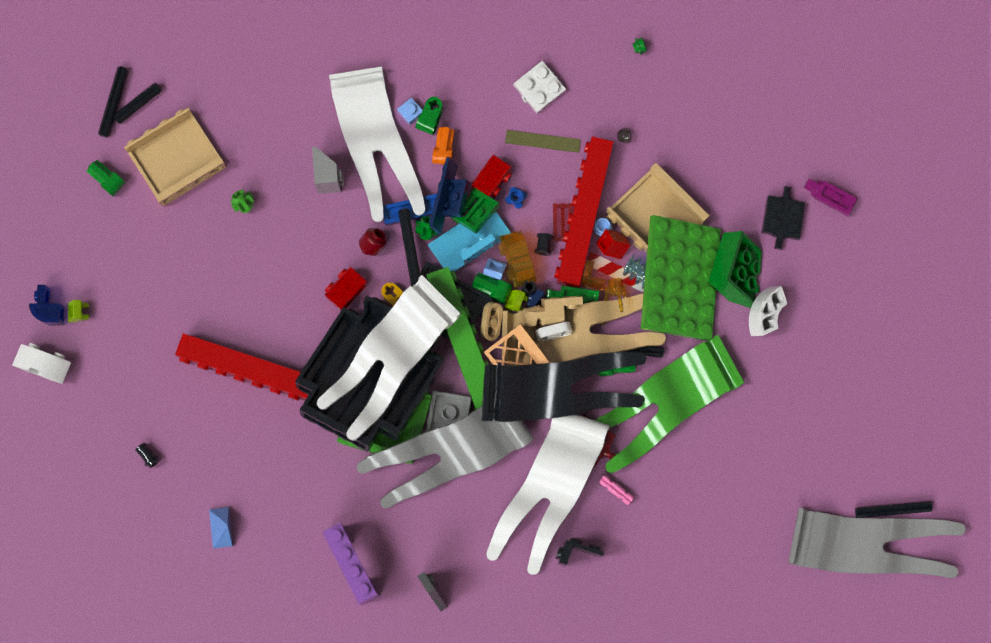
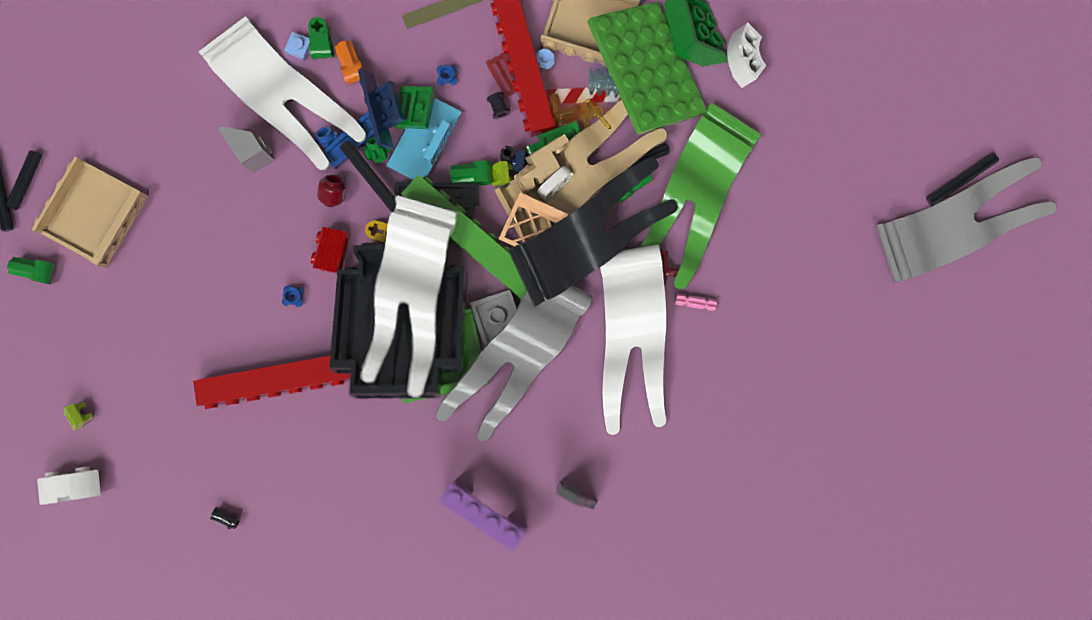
camera: 30 degrees left, 5 degrees up
(47, 313) = (41, 432): clear blue brick -> none
(221, 527) = (337, 547): medium blue slope -> none
(242, 201) = (181, 220): bright green gear -> none
(296, 313) = (288, 291): none -> blue plate
(392, 195) = (325, 136): none -> blue plate
(491, 321) = (489, 205): tan plate -> none
(492, 177) = (413, 66): red brick -> none
(494, 269) = (464, 154): light blue plate -> none
(517, 258) = (480, 132): clear yellow brick -> none
(564, 552) = (682, 388): black bracket -> none
(613, 244) = (564, 69): red panel -> none

